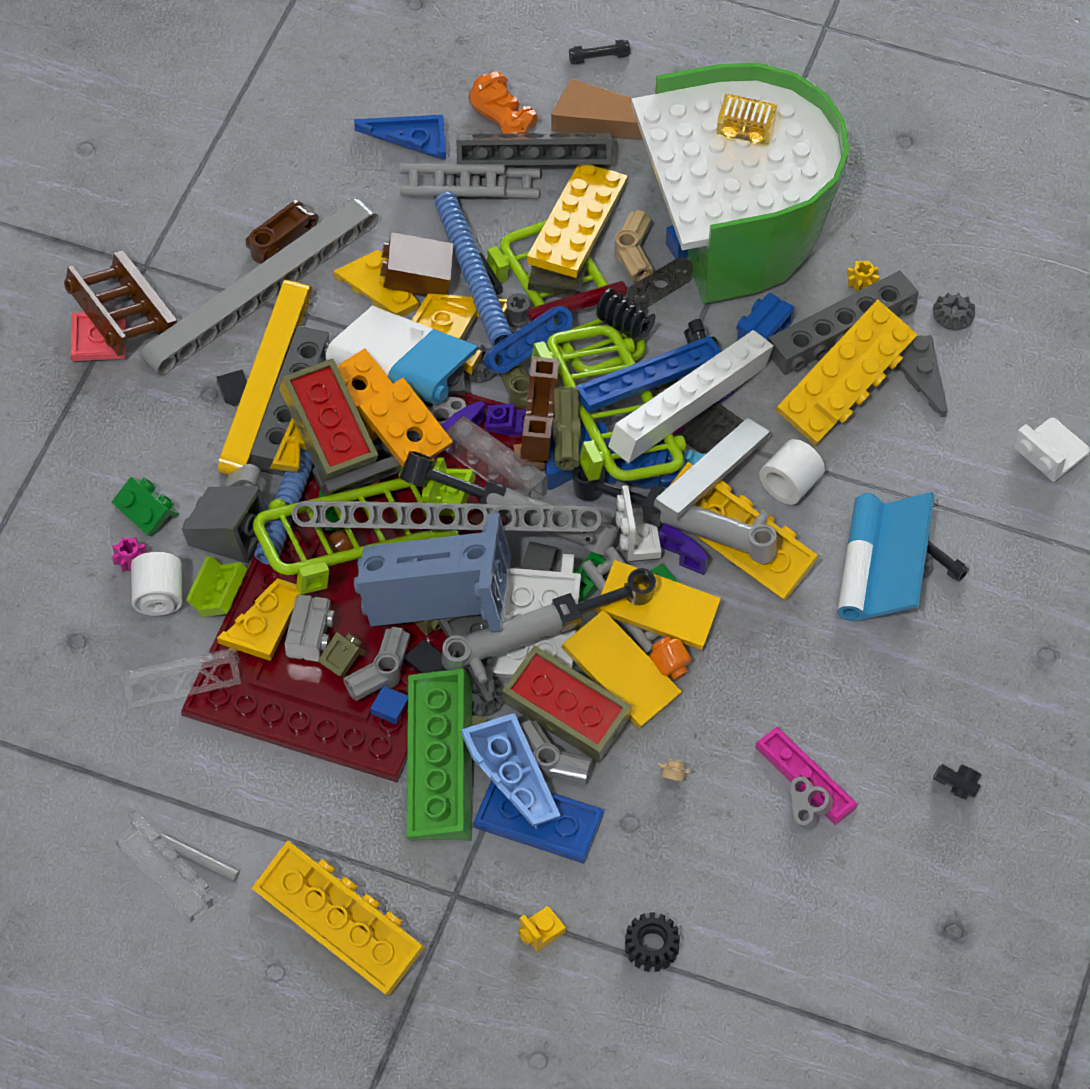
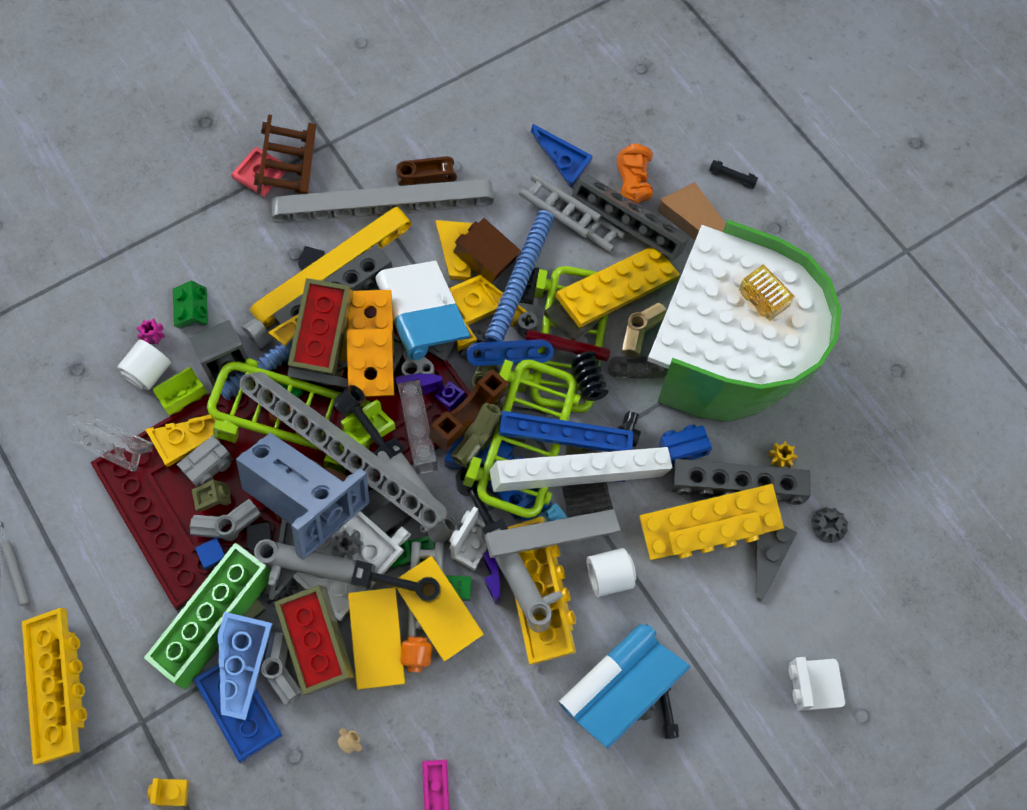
camera: 35 degrees right, 10 degrees up
(526, 593) = (343, 541): none -> dark grey gear

